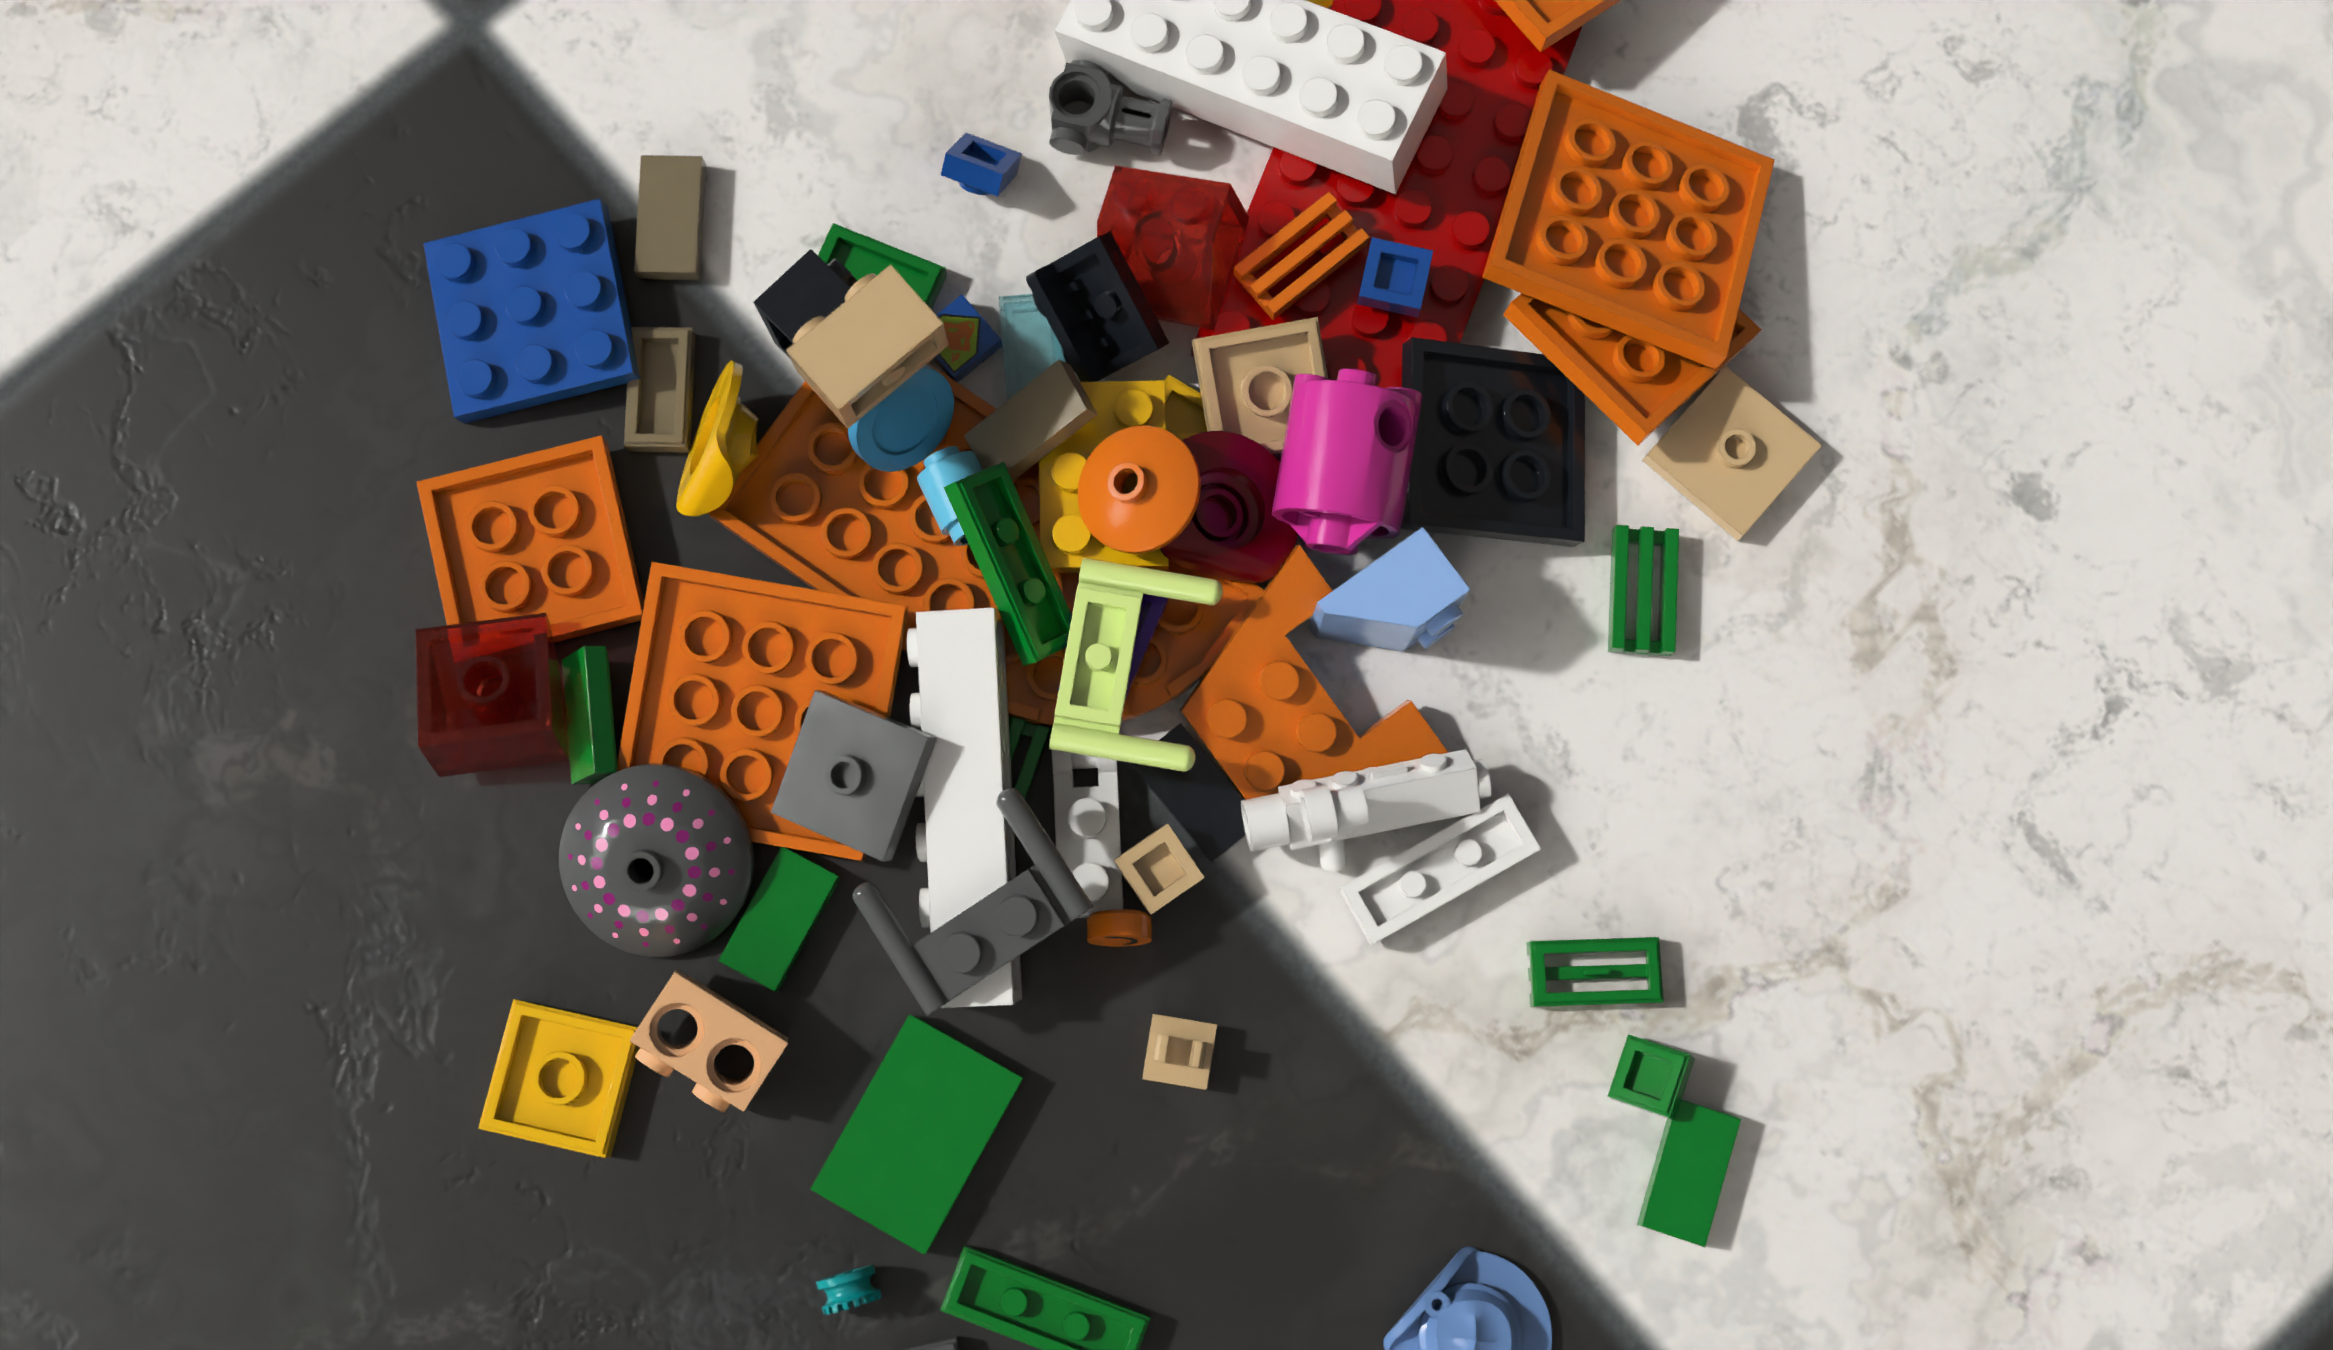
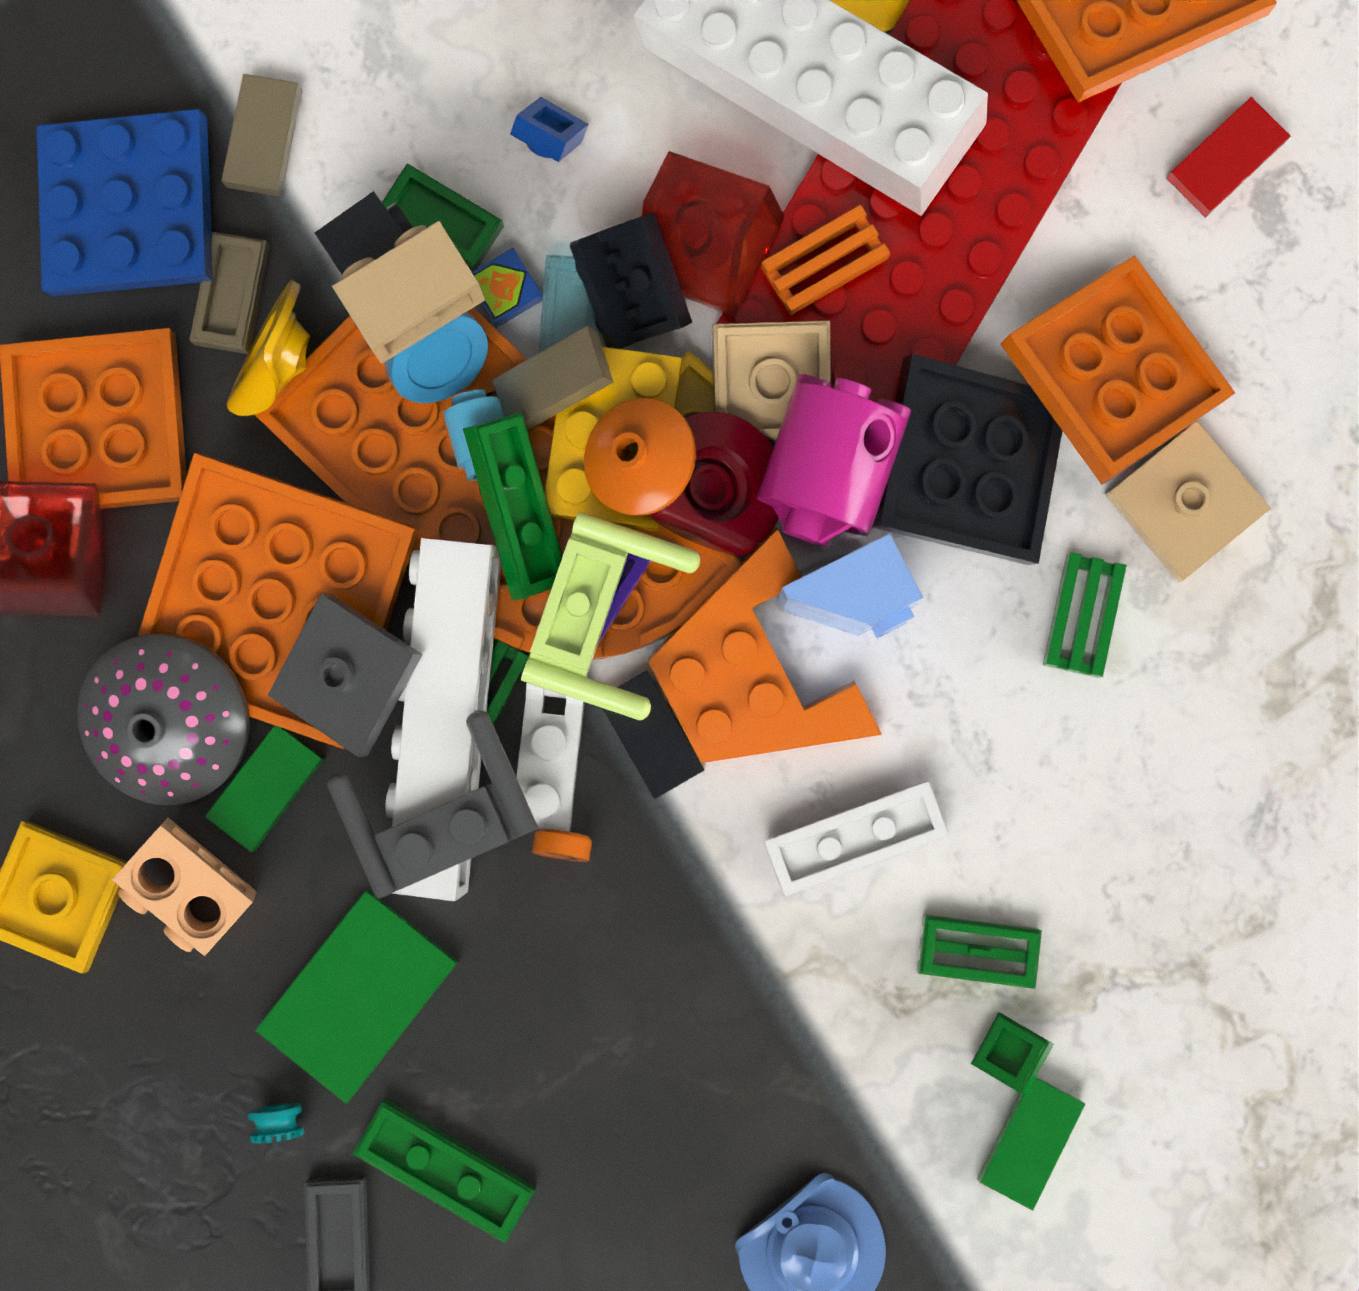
camera: 15 degrees right, 5 degrees up
(589, 715) = (123, 580): green tile -> none
(1109, 118) = (673, 102): dark grey connector -> none
(1158, 869) = (604, 799): tan tile -> none
(1179, 1051) = (598, 962): tan tile -> none
(1365, 803) = (799, 770): white piece -> none
(1395, 277) = (907, 294): blue plate -> none
(1630, 220) = (1133, 273): orange plate -> none
(1712, 80) = (1228, 157): none -> red tile

